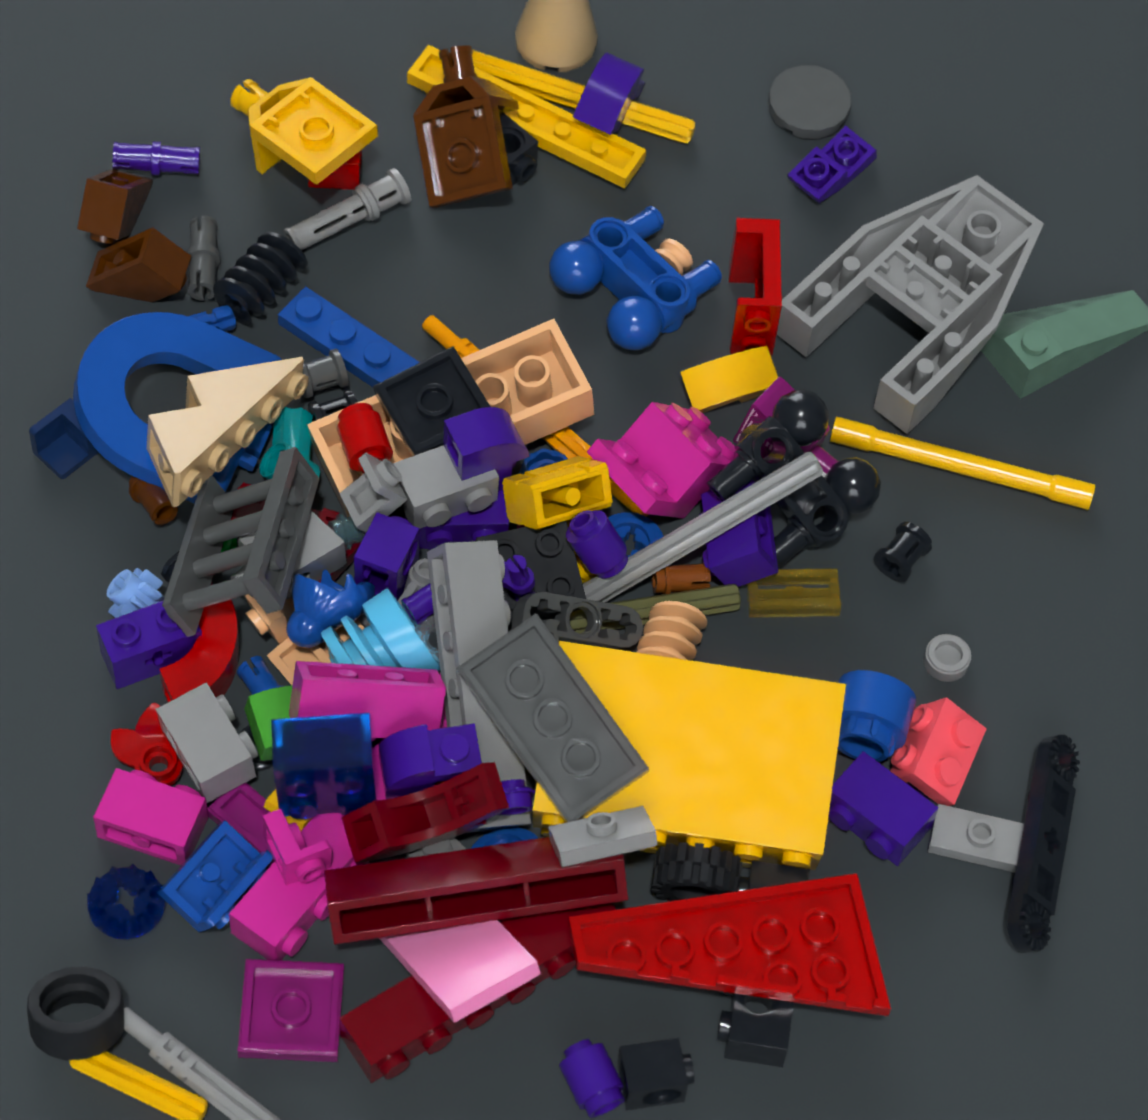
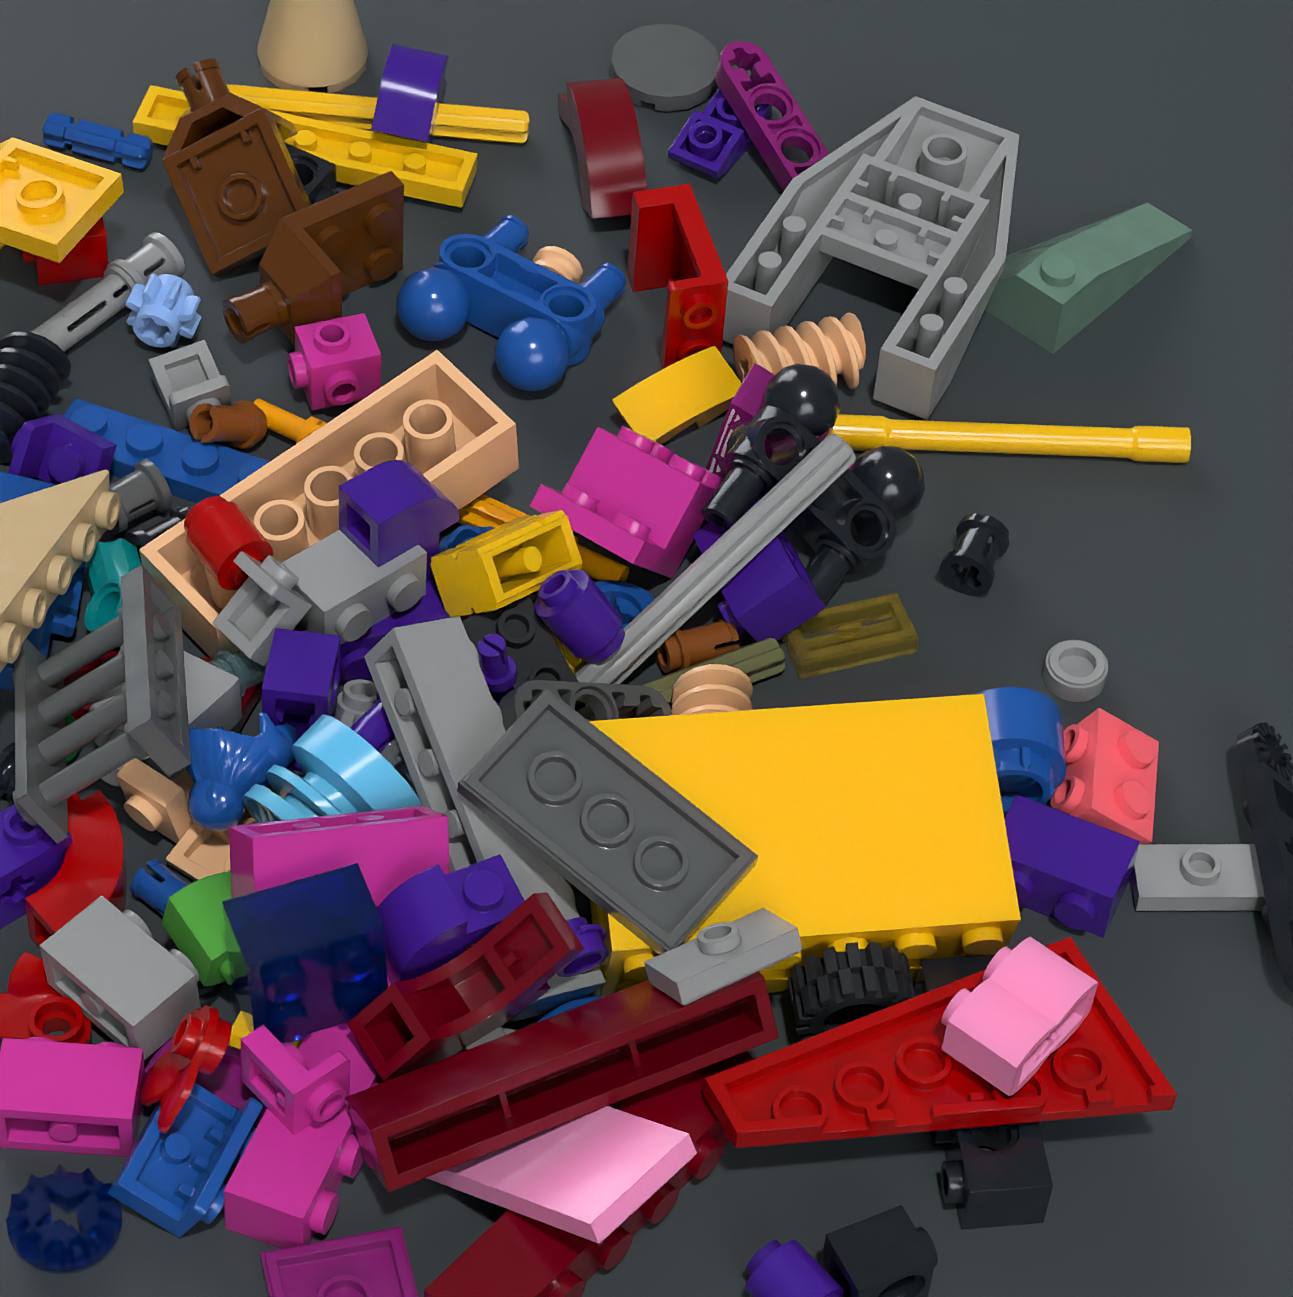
camera: 15 degrees left, 10 degrees down
(235, 810) = (196, 1047): none -> red plate
(281, 330) = (58, 450): none -> dark purple bracket
(380, 80) = (97, 141): none -> blue axle
(384, 231) = (163, 310): none -> light blue gear
(387, 295) = (188, 379): none -> light grey bracket
(412, 332) = (240, 424): none -> dark orange pin
(428, 395) = (296, 479): black tile -> none
(492, 299) = (335, 361): none -> dark pink brick
(501, 217) = (321, 257): none -> reddish brown plate
(739, 164) = (605, 144): none -> dark red arch
(794, 927) = (1017, 1014): none -> bright pink brick
(829, 368) = (830, 346): none -> light nougat piece
(874, 141) = (770, 89): none -> magenta beam

